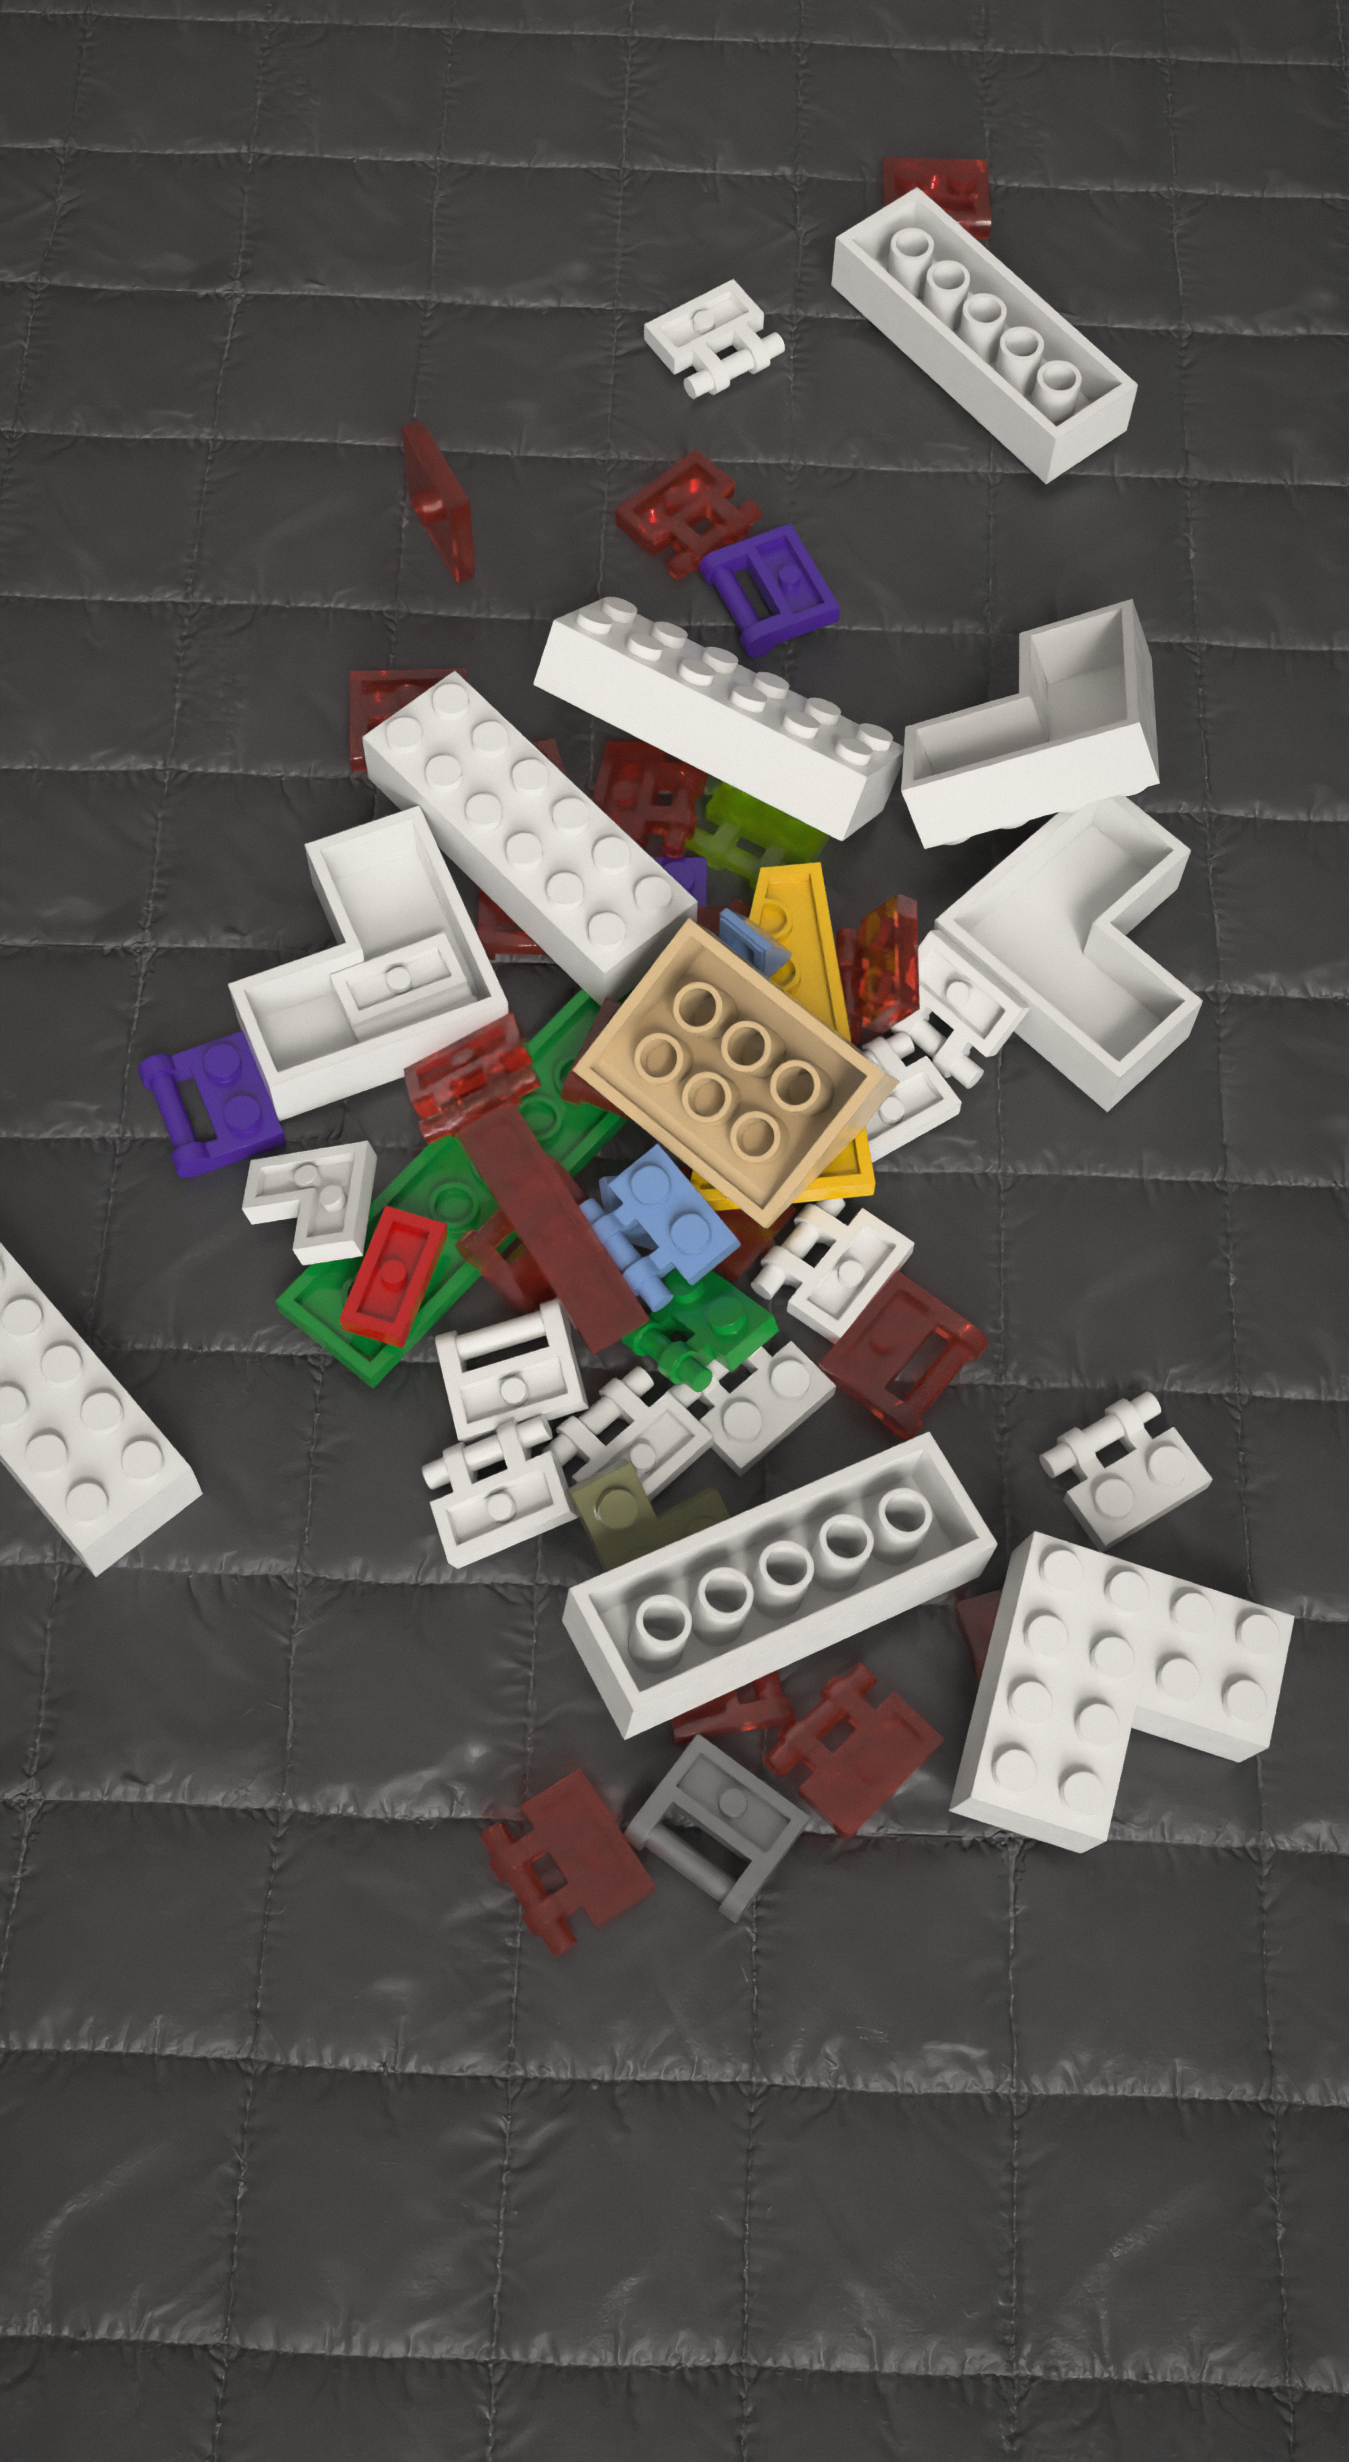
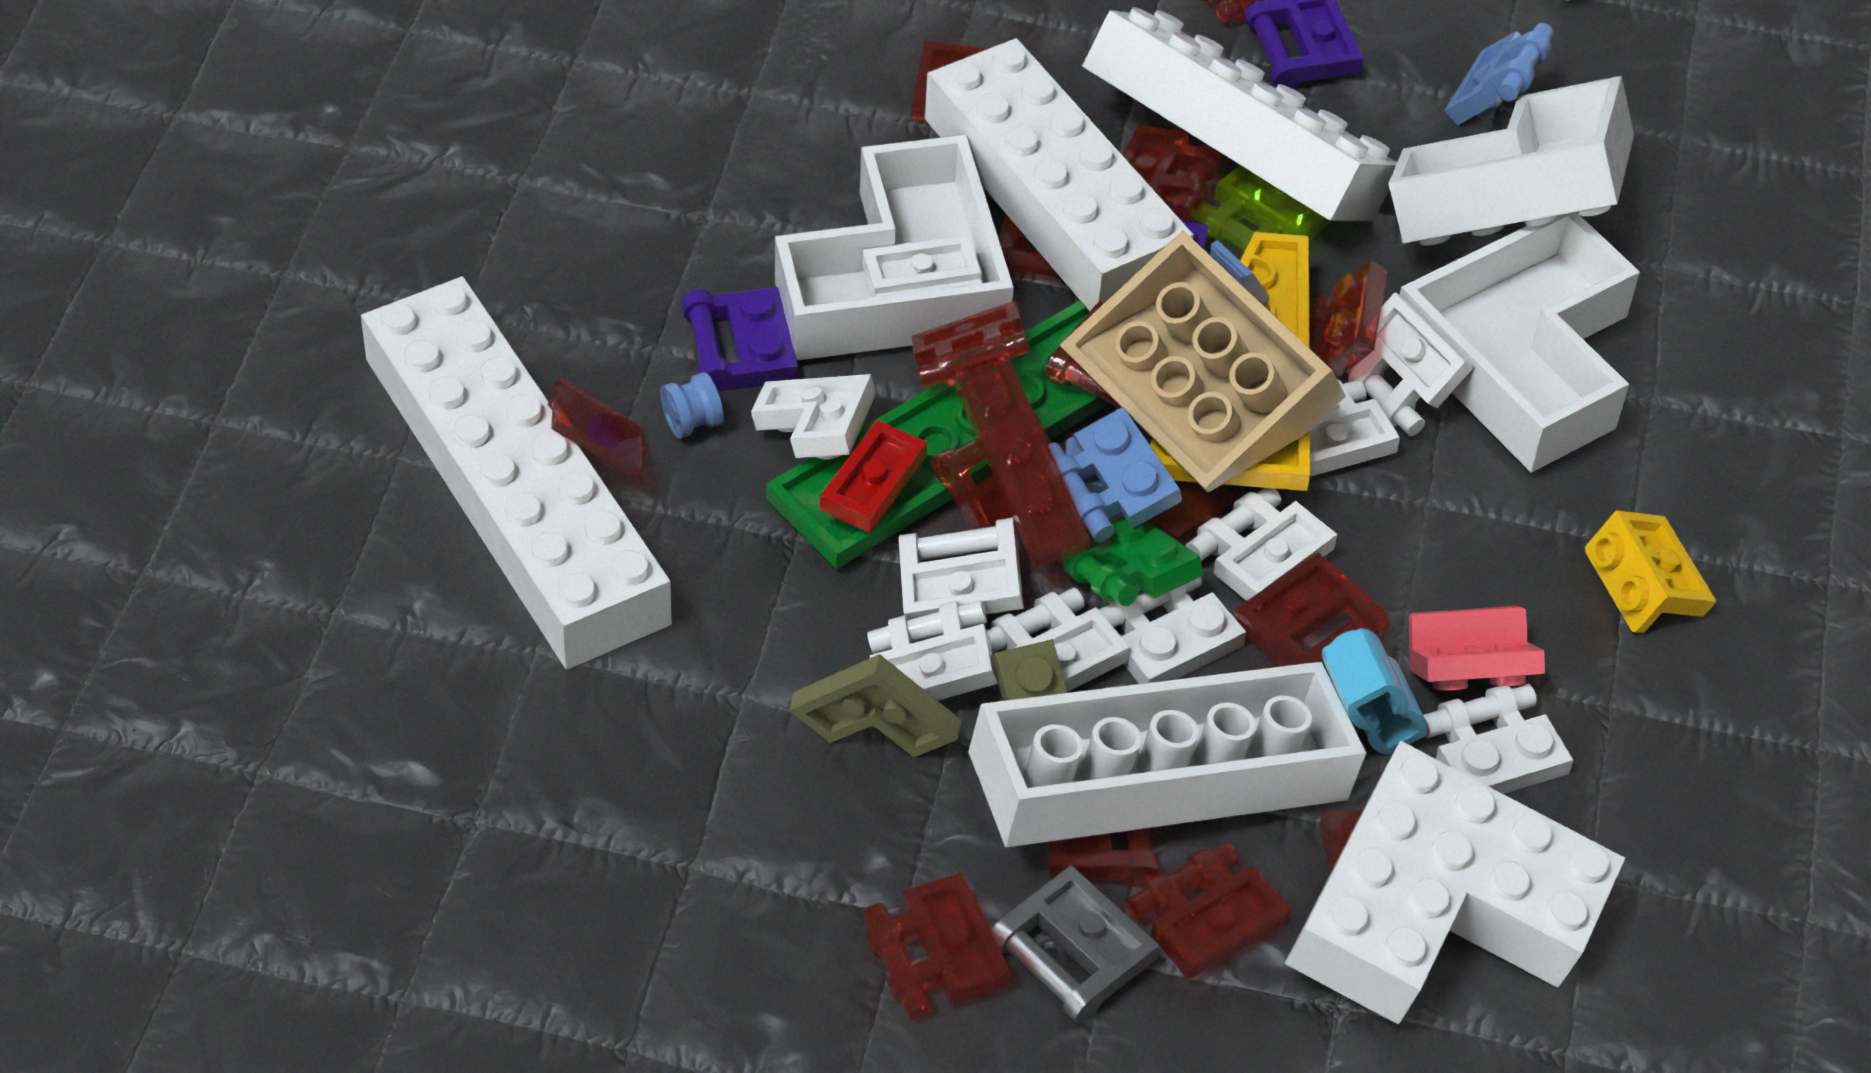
camera: 10 degrees right, 15 degrees down
(71, 1270) = (597, 428): none -> clear red piece
(173, 1209) = (691, 405): none -> medium blue wheel
(453, 1573) = (876, 696): none -> olive plate
(989, 1449) = (1374, 690): none -> medium azure brick
(993, 602) = (1500, 73): none -> medium blue plate
(1085, 1362) = (1473, 645): none -> coral bracket
(1253, 1218) = (1647, 569): none -> yellow bracket

